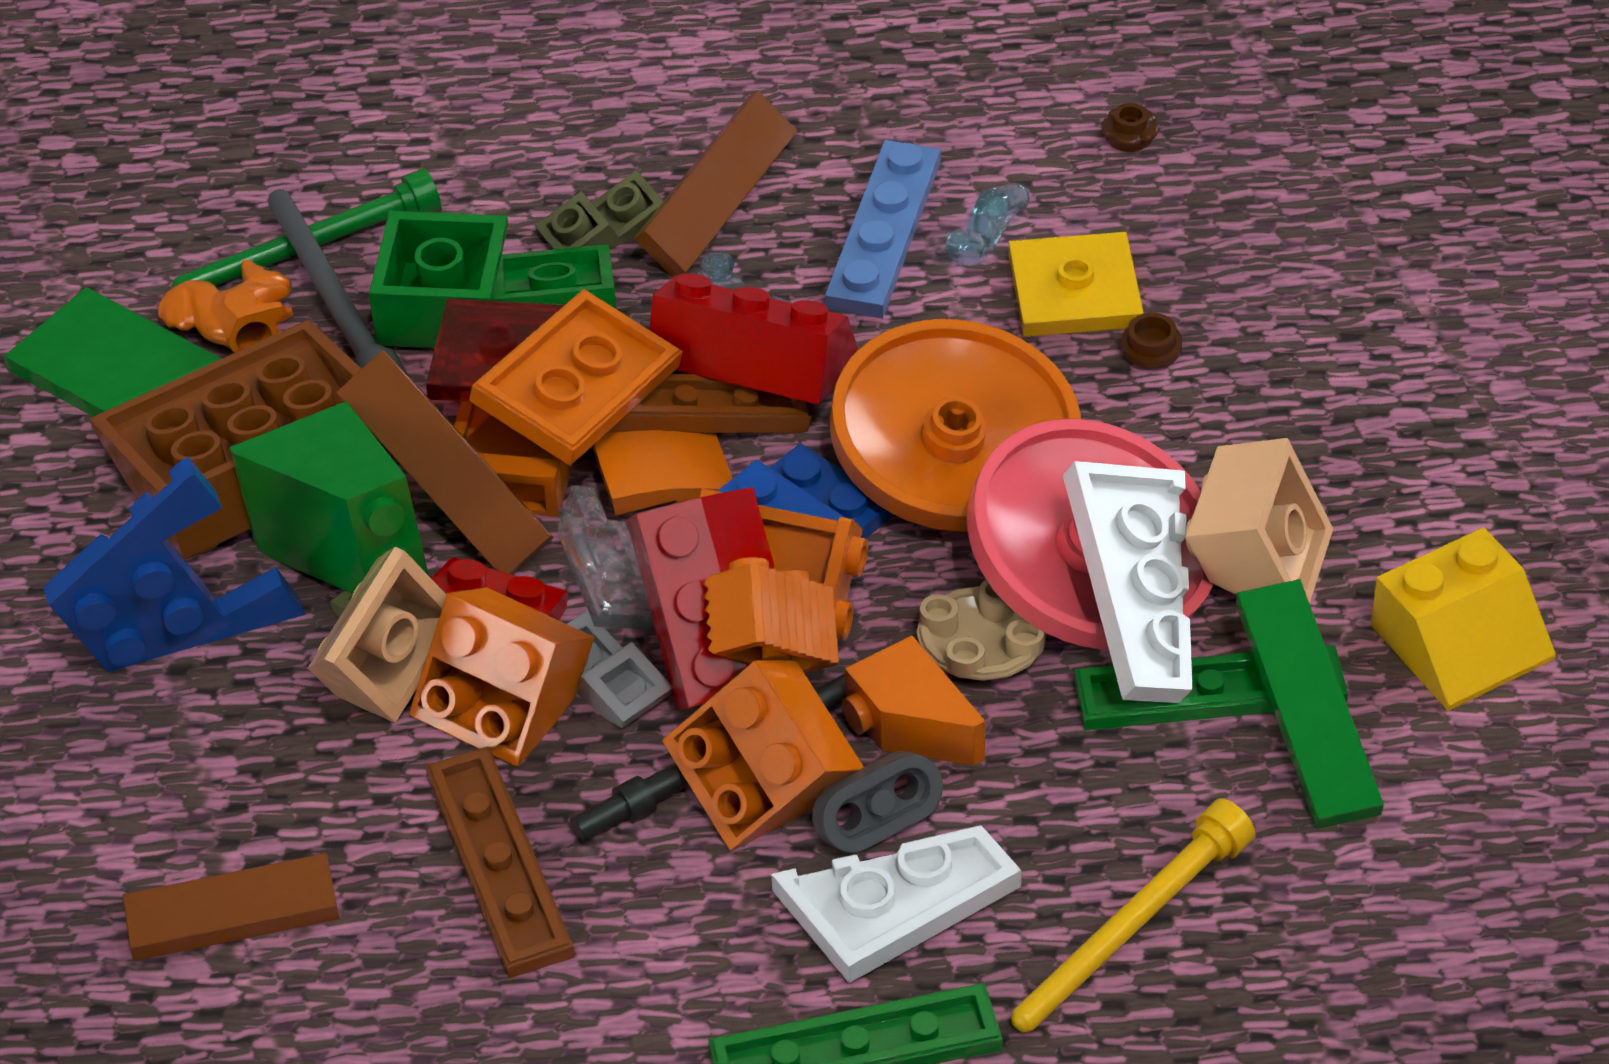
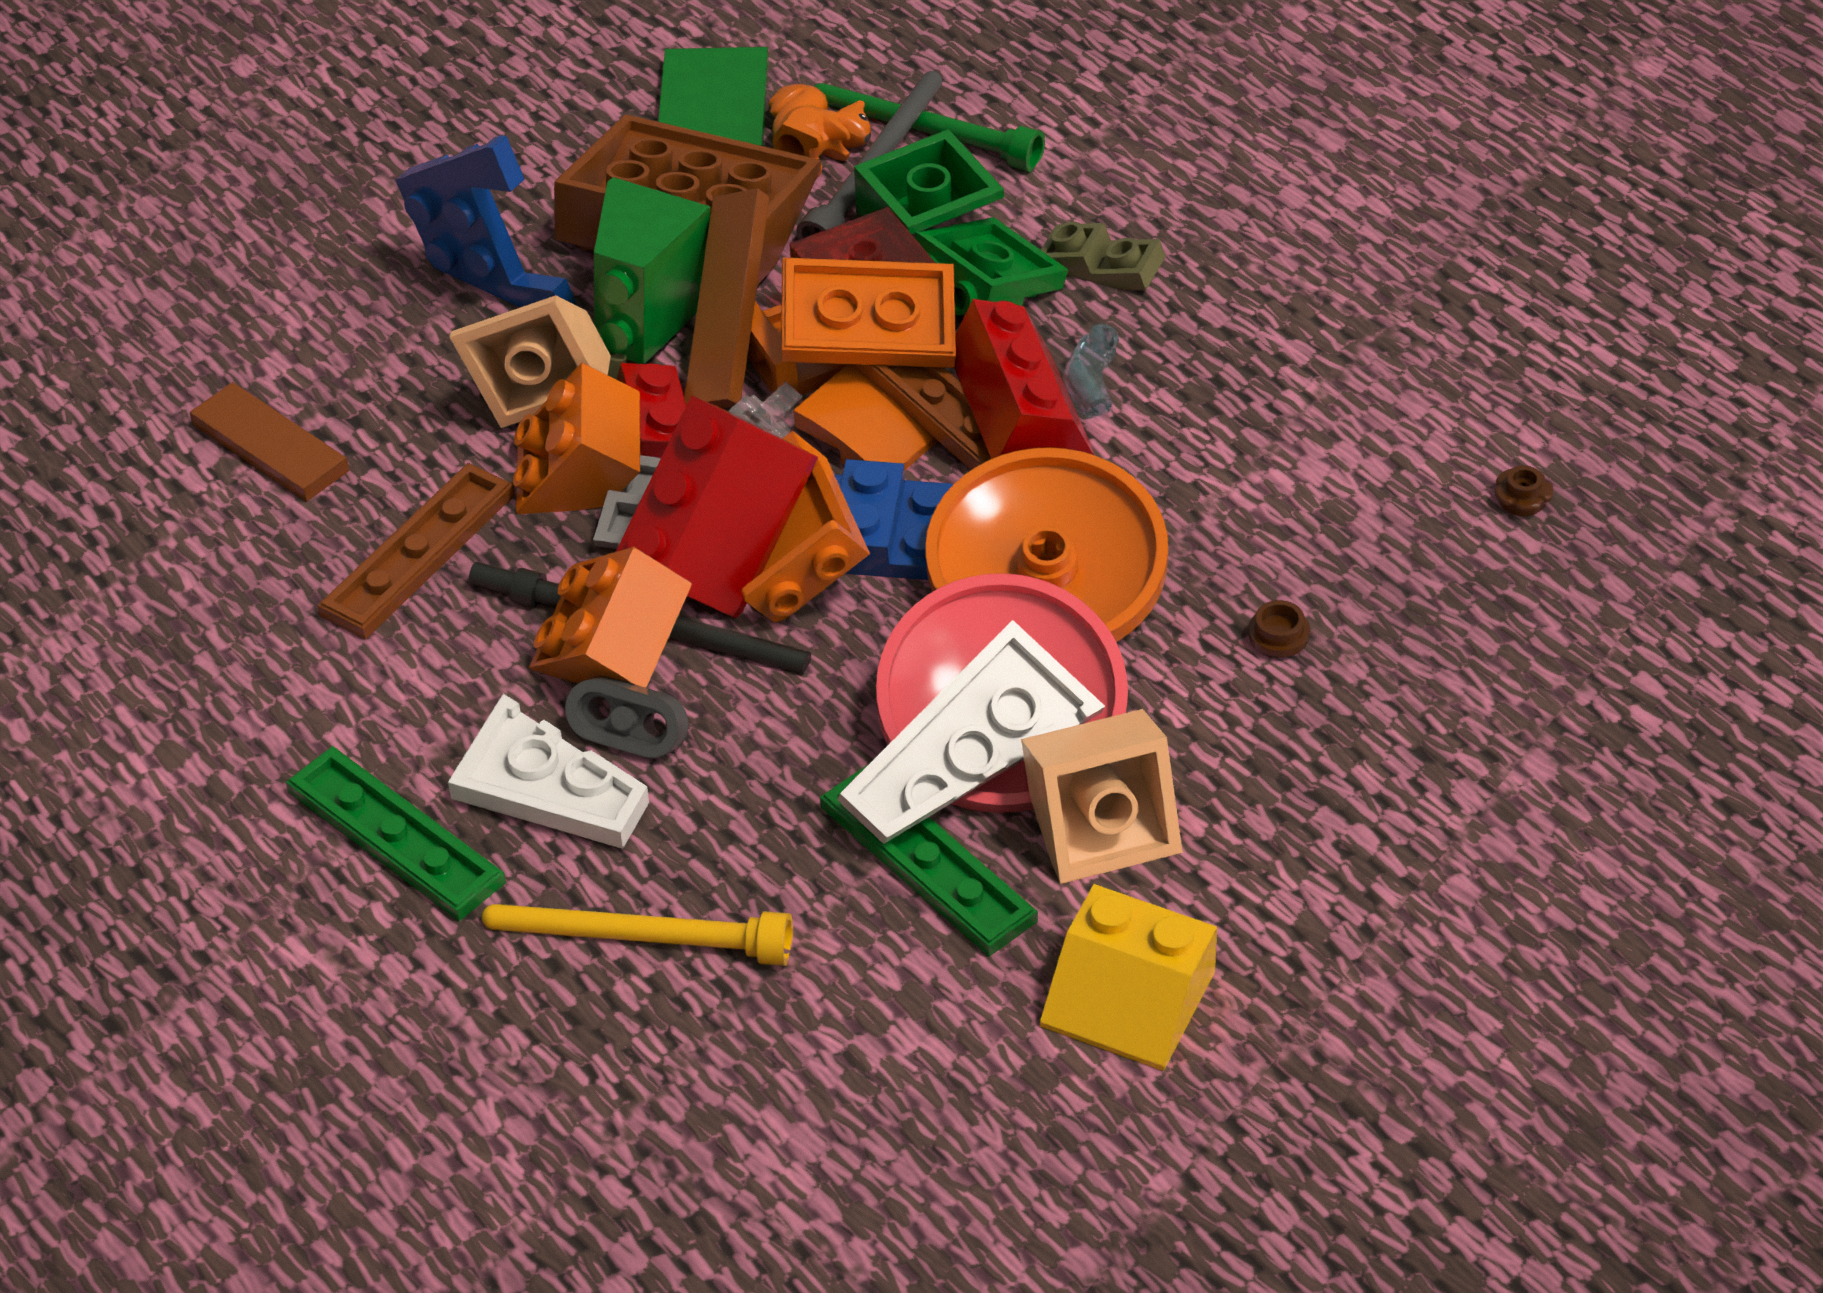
camera: 55 degrees right, 0 degrees up
(715, 185) = (1196, 290): dark orange tile -> none
(771, 615) = (705, 542): orange brick -> none
(883, 229) = (1252, 410): medium blue plate -> none
(912, 706) = (740, 683): orange slope -> none
(977, 634) = (841, 688): tan dish -> none
(987, 223) = (1316, 460): clear light blue arm -> none
(1074, 283) = (1304, 551): yellow plate -> none
(1309, 704) = (944, 921): green tile -> none

